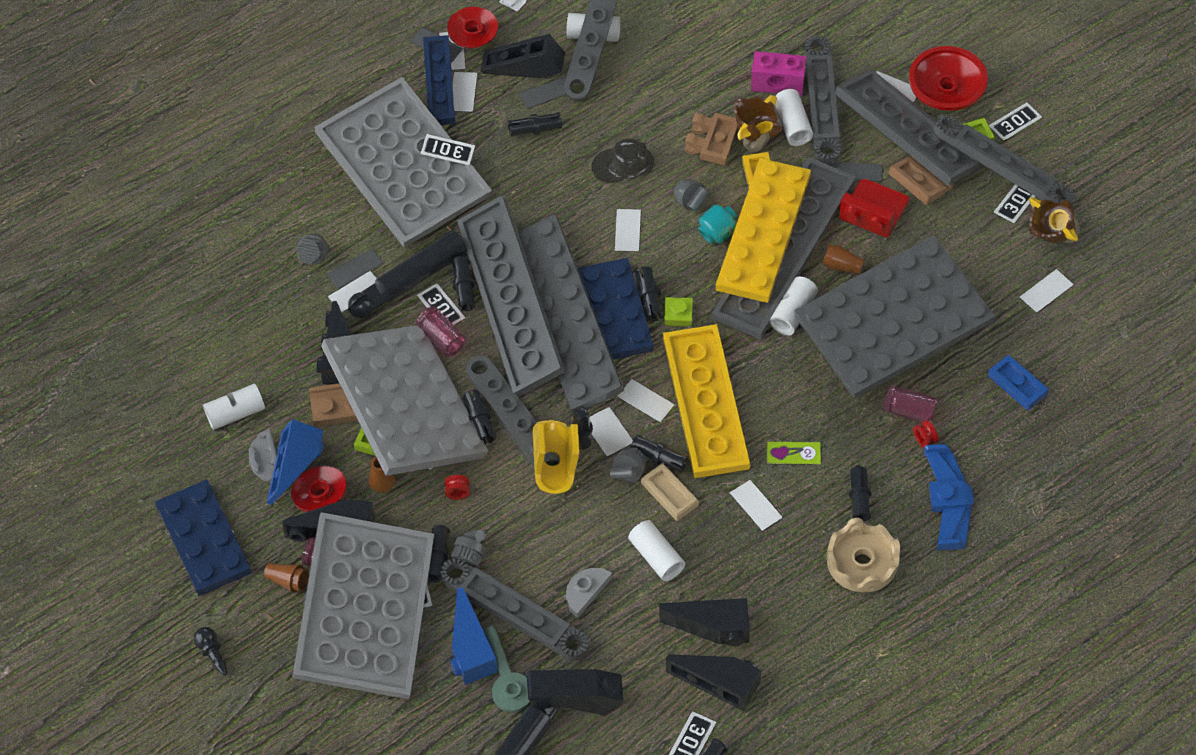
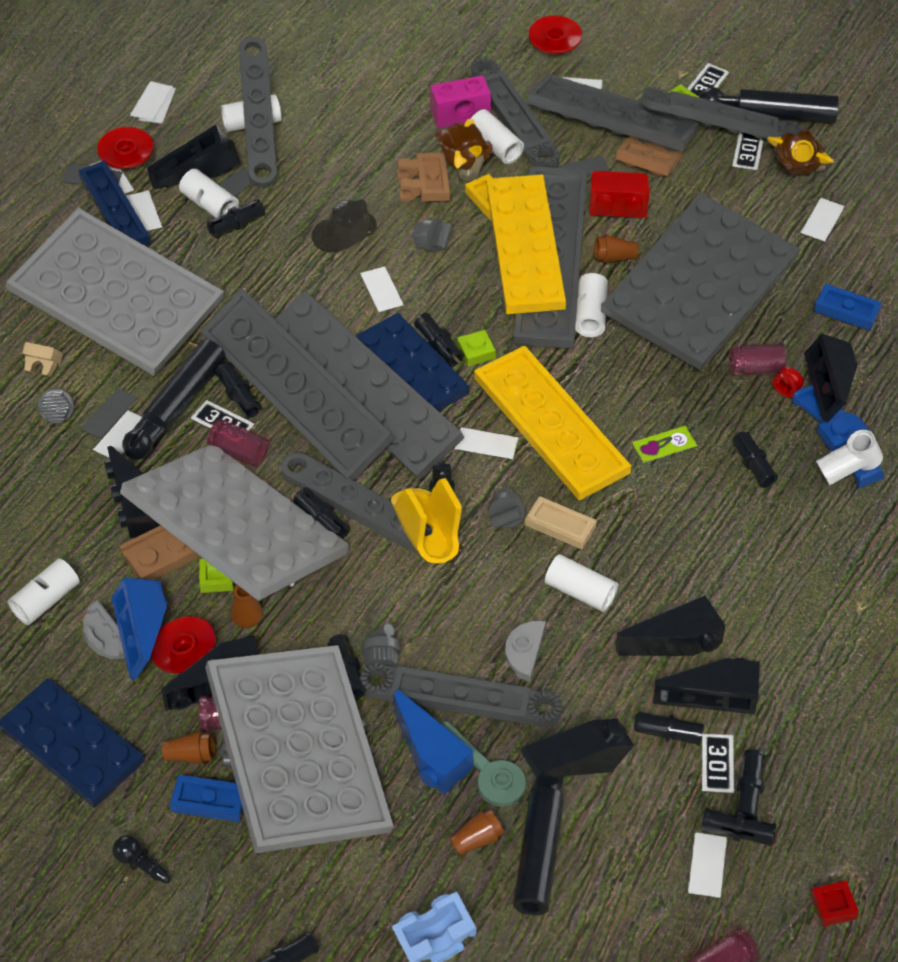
camera: 25 degrees left, 5 degrees down
(278, 619) = (206, 798): none -> blue plate
(323, 201) = (42, 354): none -> tan tile
(447, 149) = (159, 264): sticker -> none
(457, 487) = (334, 591): red bush -> none
(473, 724) = (477, 832): none -> dark orange cone
(520, 93) = (207, 193): none -> white pin
(609, 432) = (469, 487): white sticker -> none
(660, 453) = (533, 486): black pin -> none
(665, 697) = (668, 728): none -> black axle
(717, 224) = (474, 253): teal head -> none
(756, 505) = (654, 506): white sticker -> none
(860, 539) = (799, 500): tan plate -> none
(898, 31) = (555, 34): none -> red dish
(945, 520) = (859, 453): none -> white piece
(948, 78) = (628, 58): red dish -> none
(966, 435) = (832, 373): none -> black slope
(1062, 166) = (780, 104): none -> black piece

